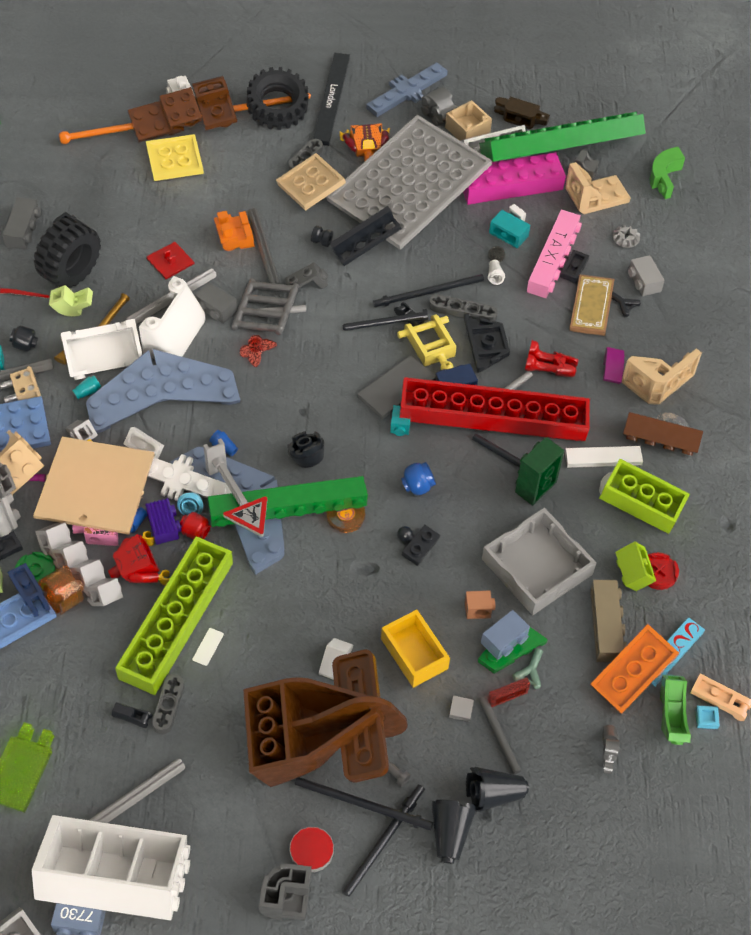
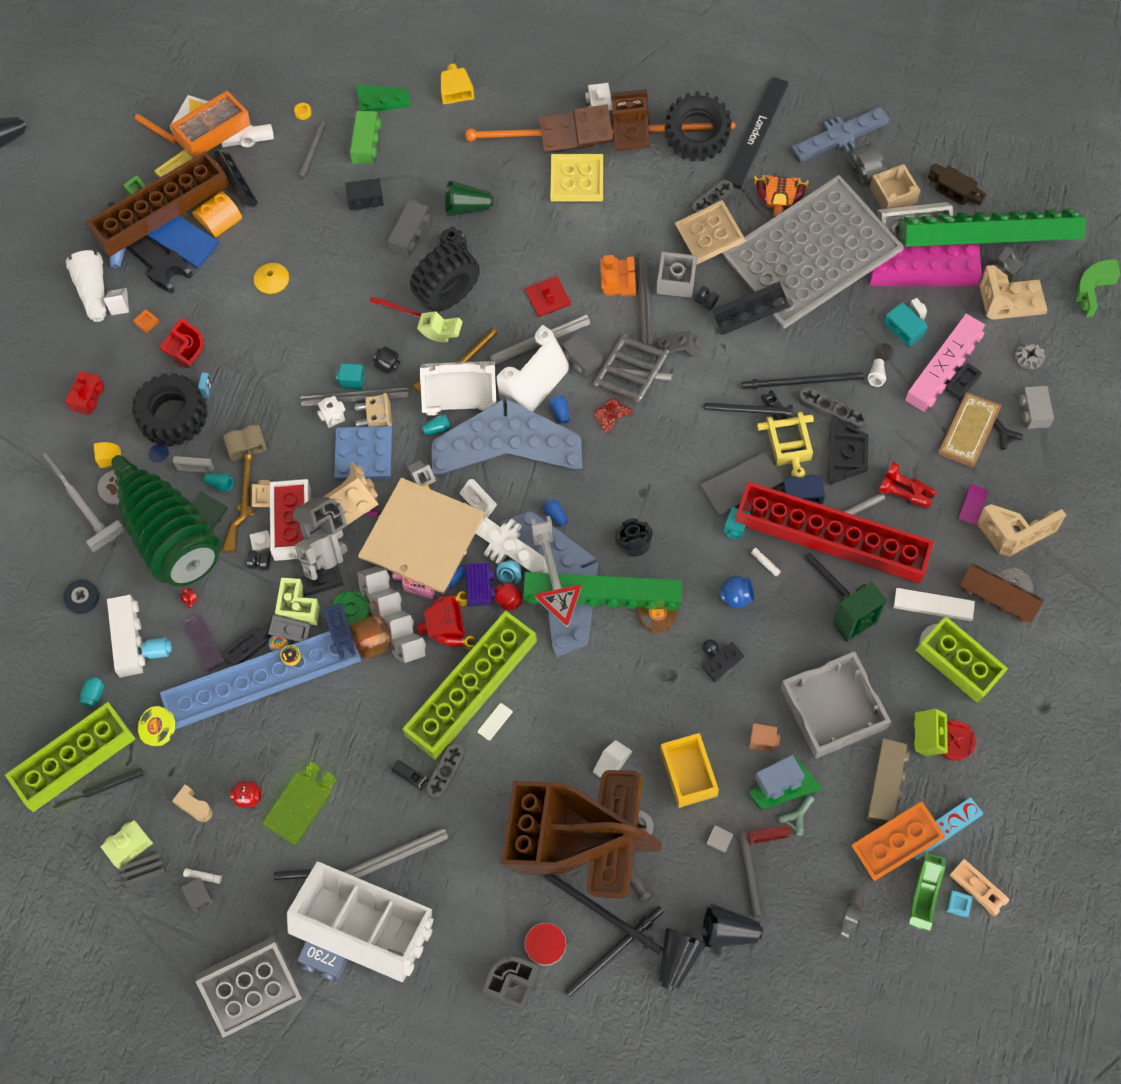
camera: 20 degrees right, 10 degrees up
(26, 841) = (296, 874): none -> black bar
(41, 99) = (455, 85): none -> yellow torso
(72, 189) = (466, 199): none -> dark green cone
(205, 352) = (560, 409): none -> blue cone
(289, 220) = (676, 274): none -> light grey brick
(436, 449) = (766, 562): none -> white wheel

